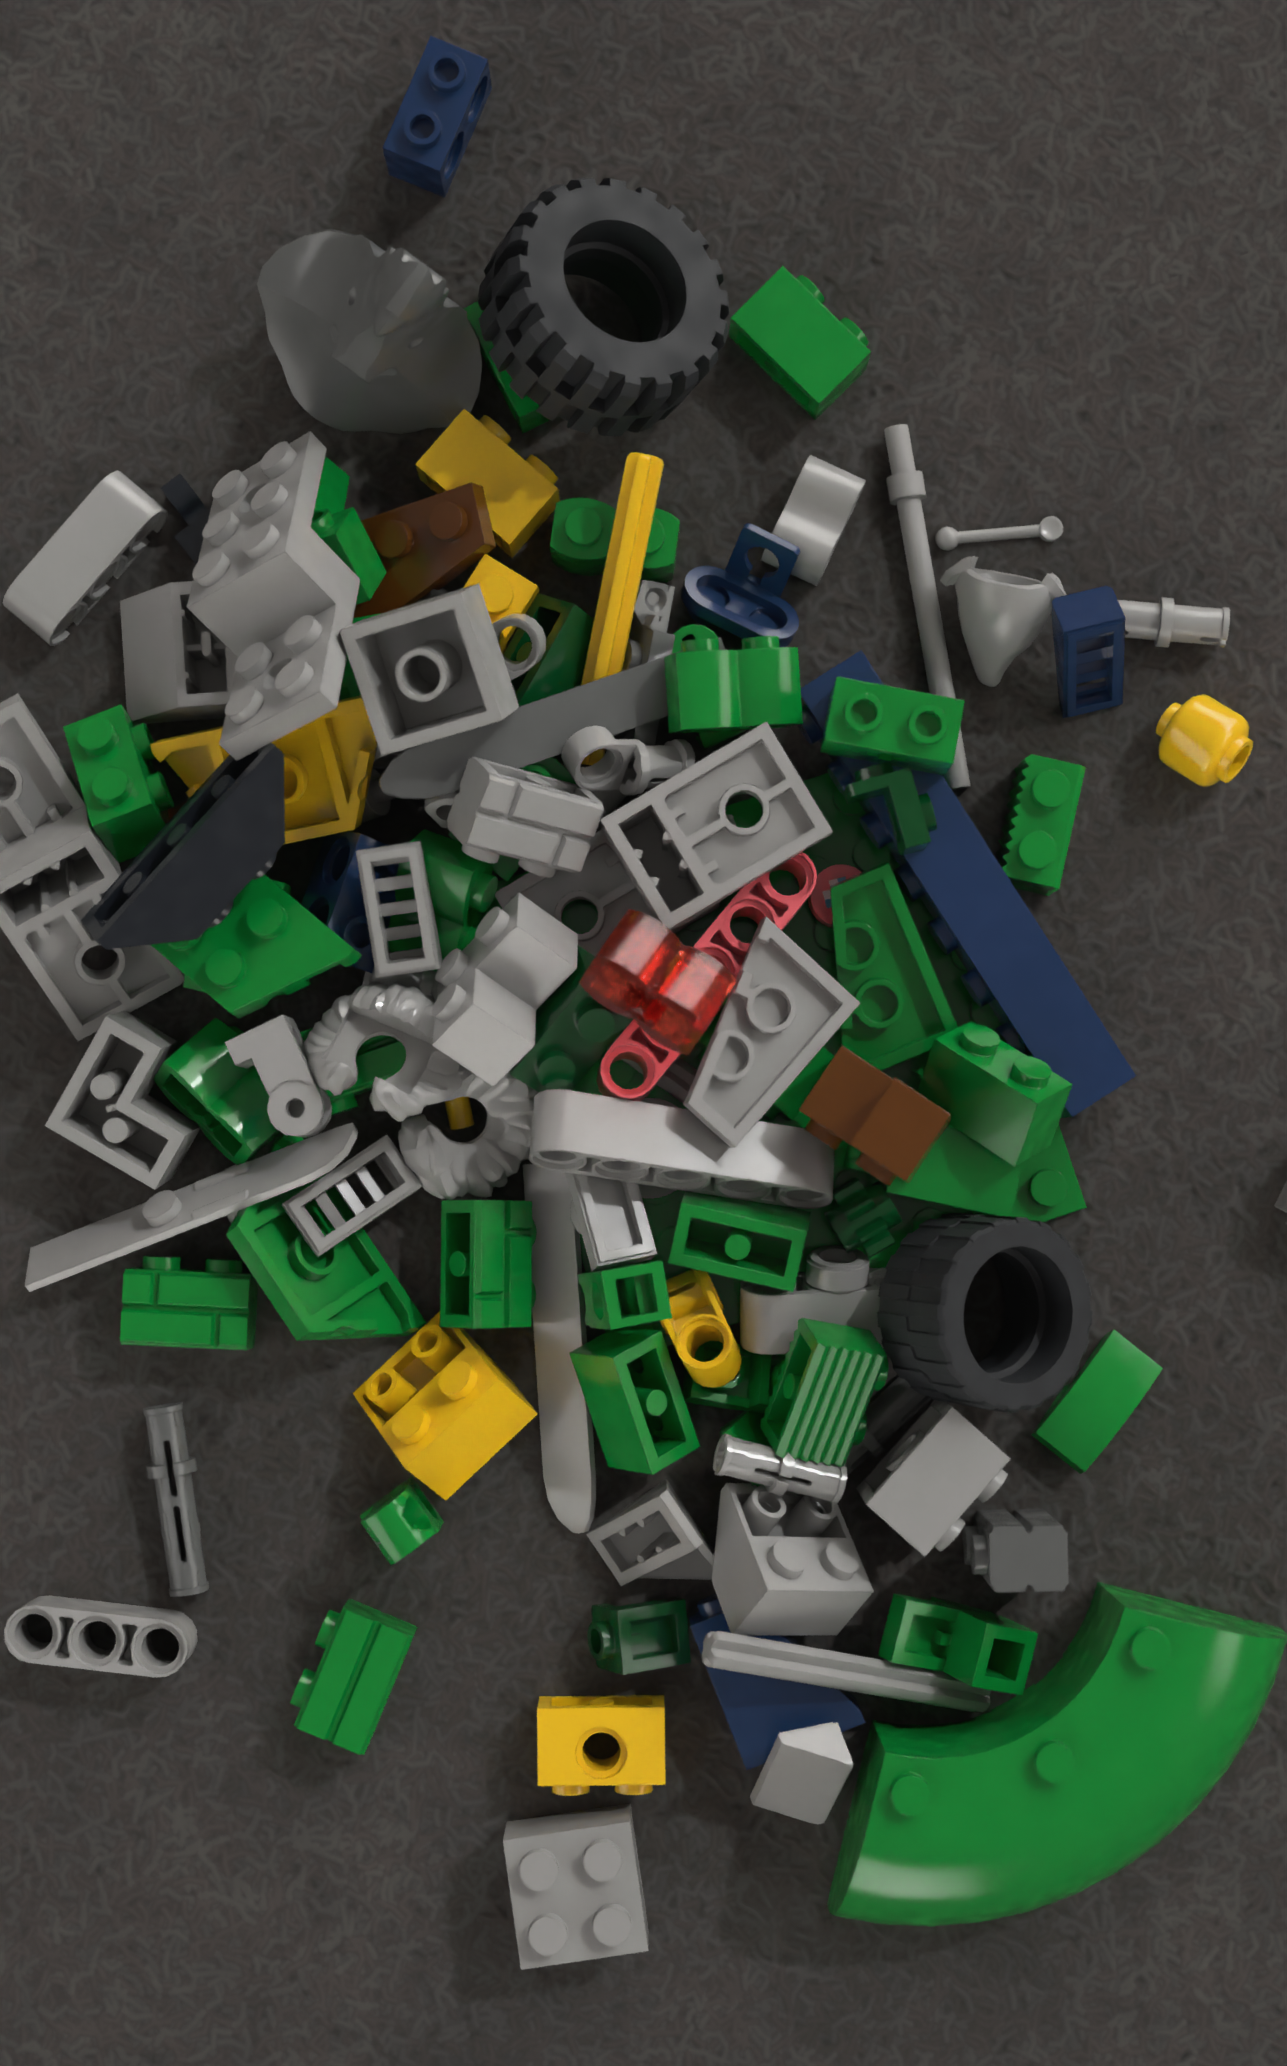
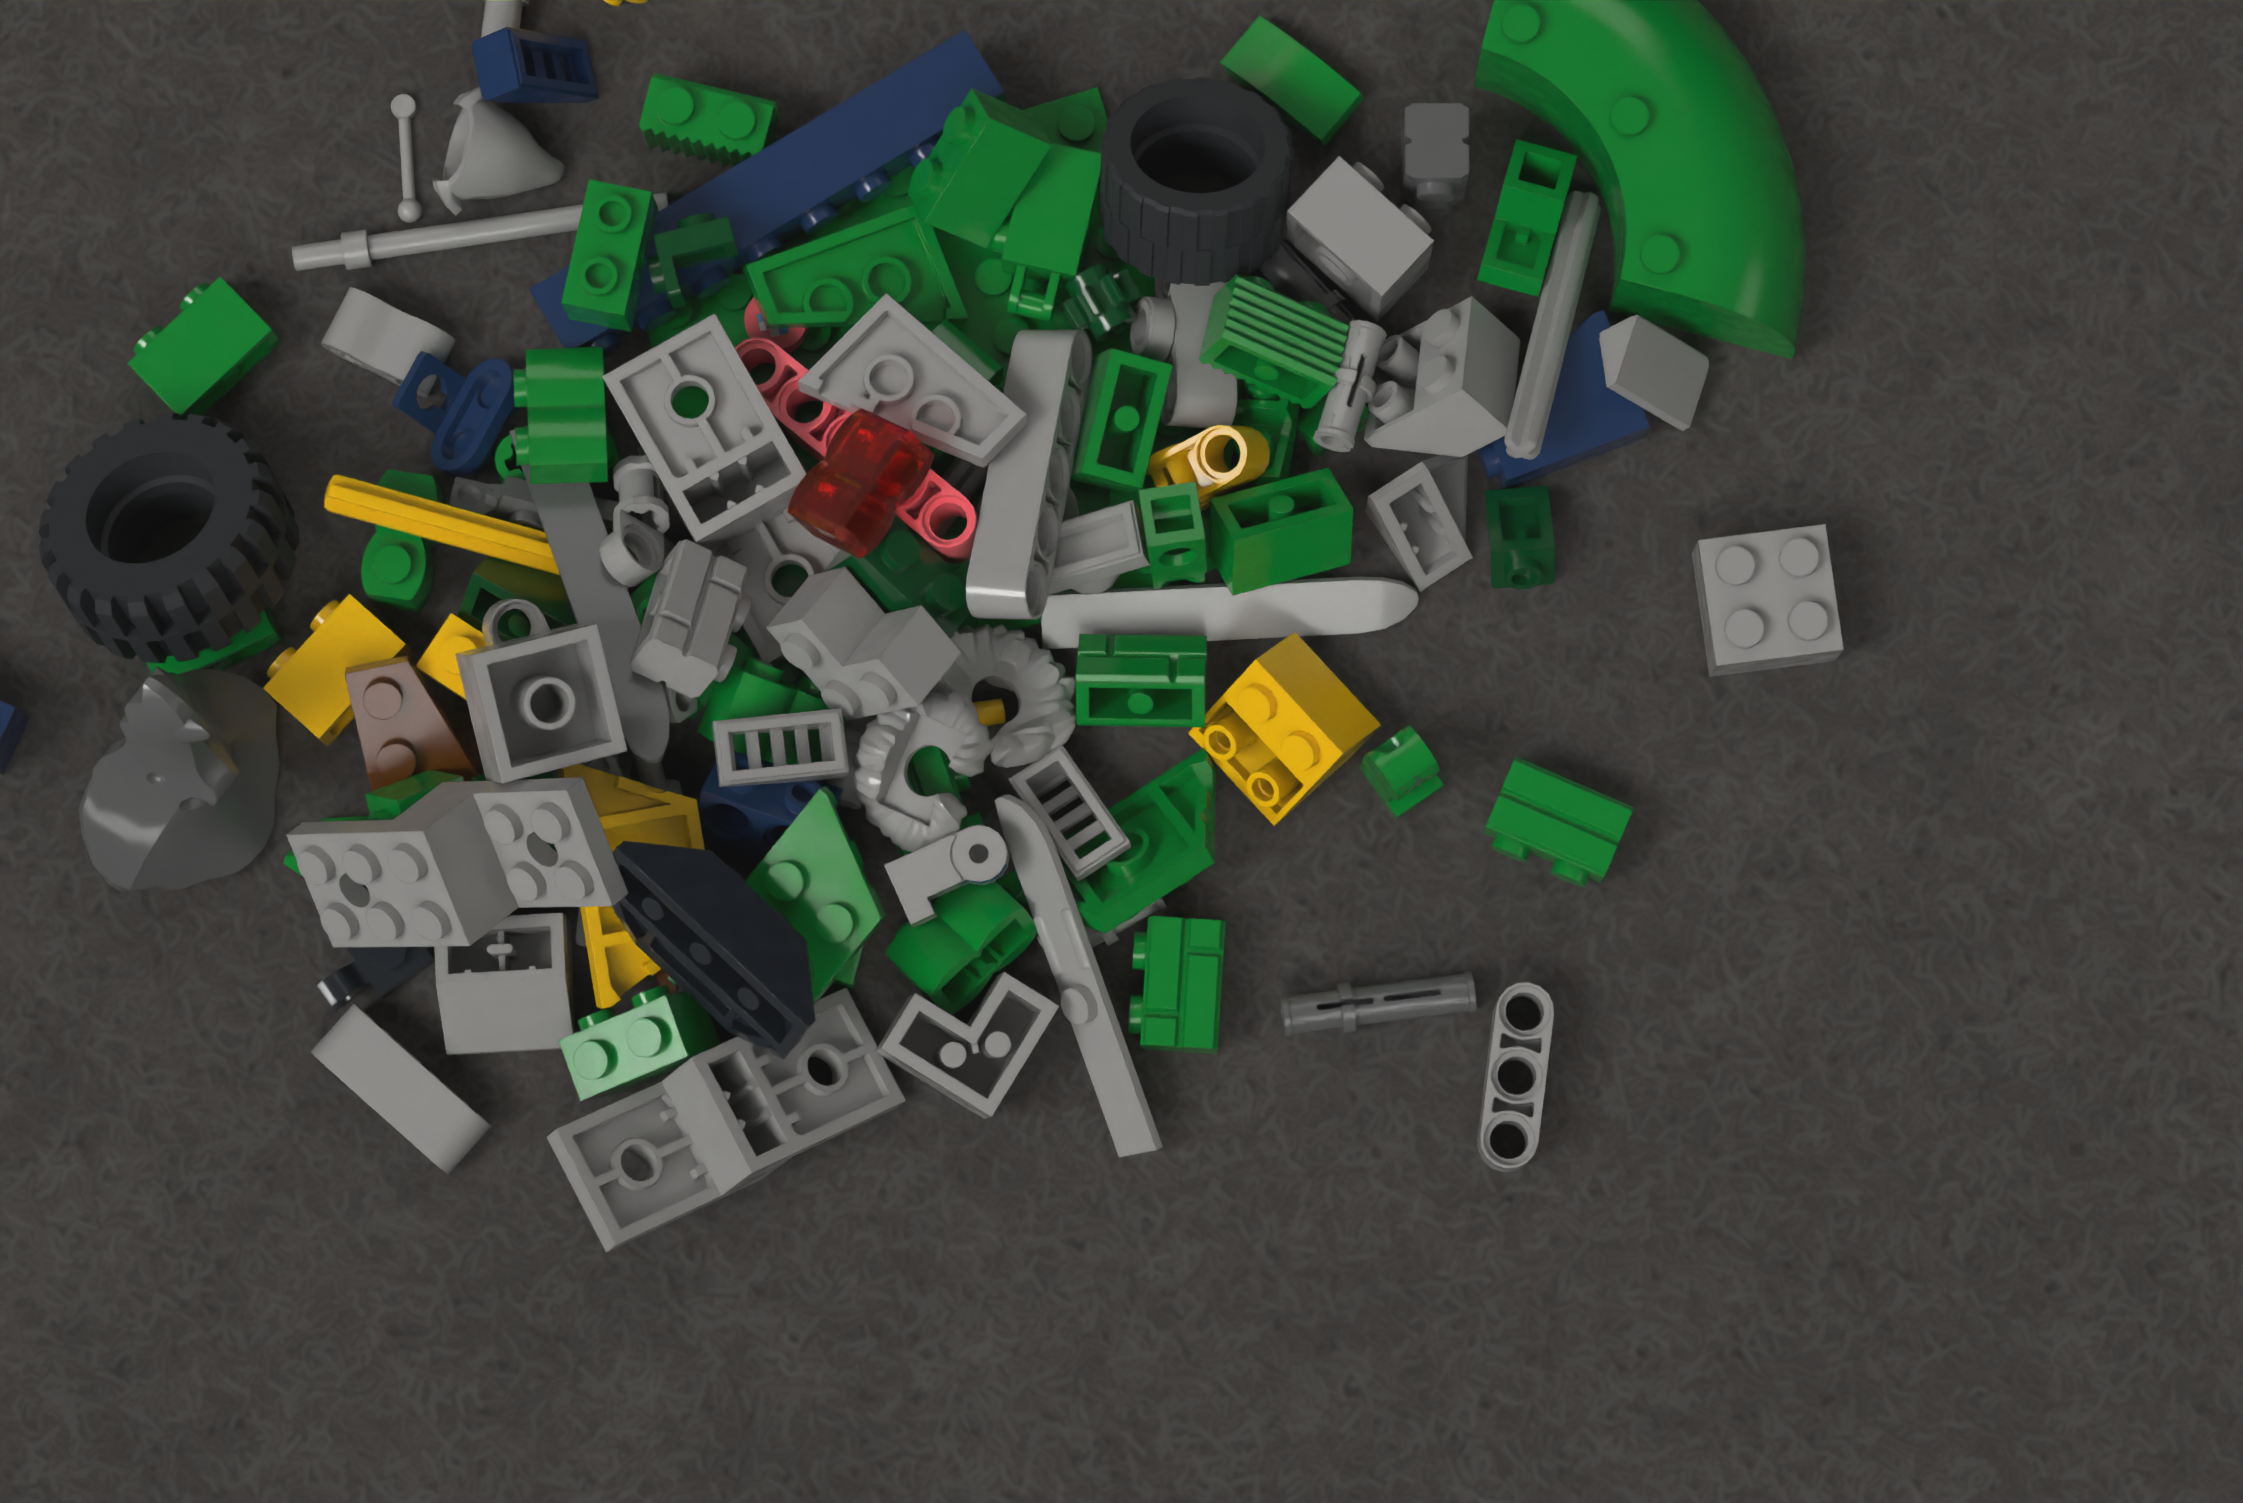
camera: 85 degrees left, 5 degrees down
(570, 1720) = (1620, 536): yellow brick -> none
(875, 1116) = (1000, 277): reddish brown brick -> none

